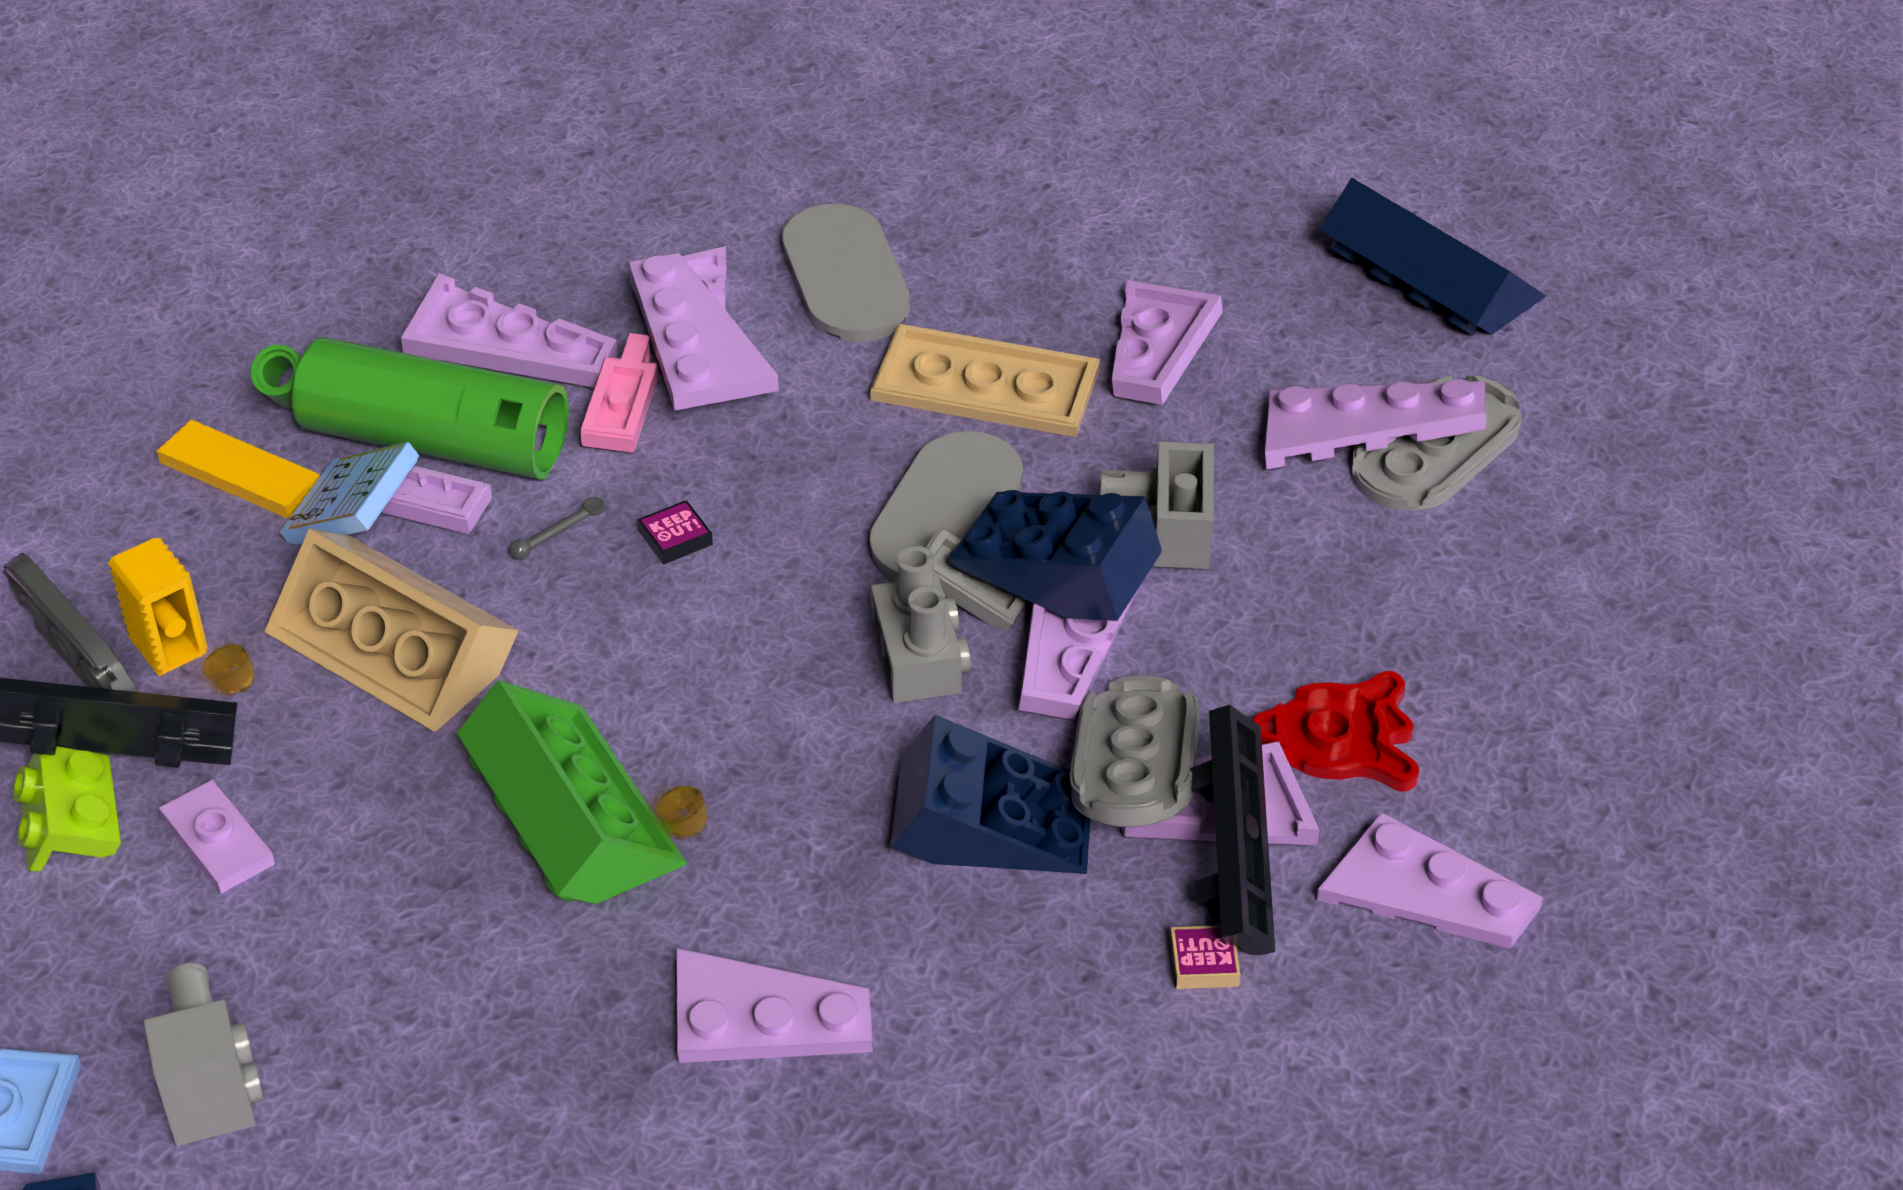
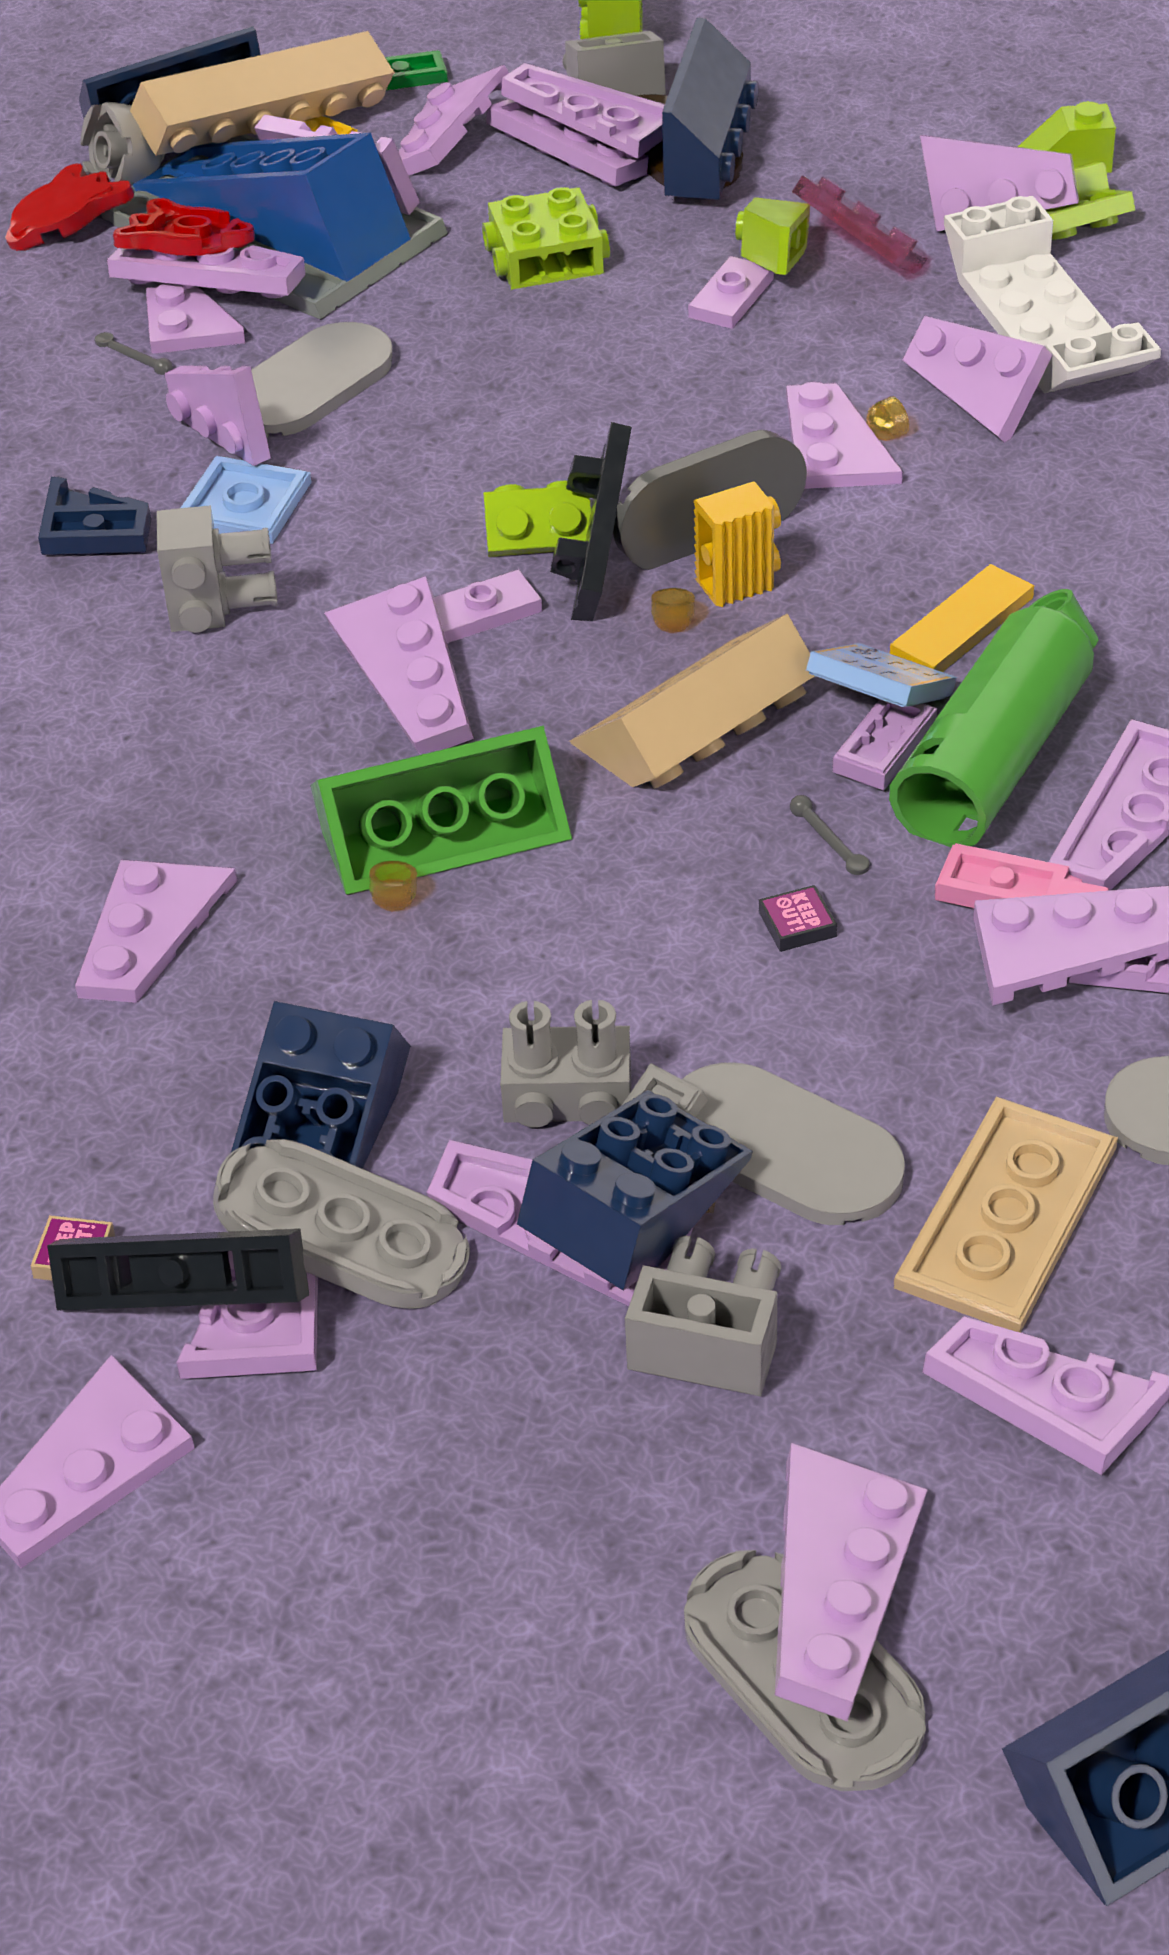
camera: 105 degrees right, 0 degrees up
(300, 881) = (408, 662): none -> lavender wing
(1346, 731) = (332, 1441): red tile -> none

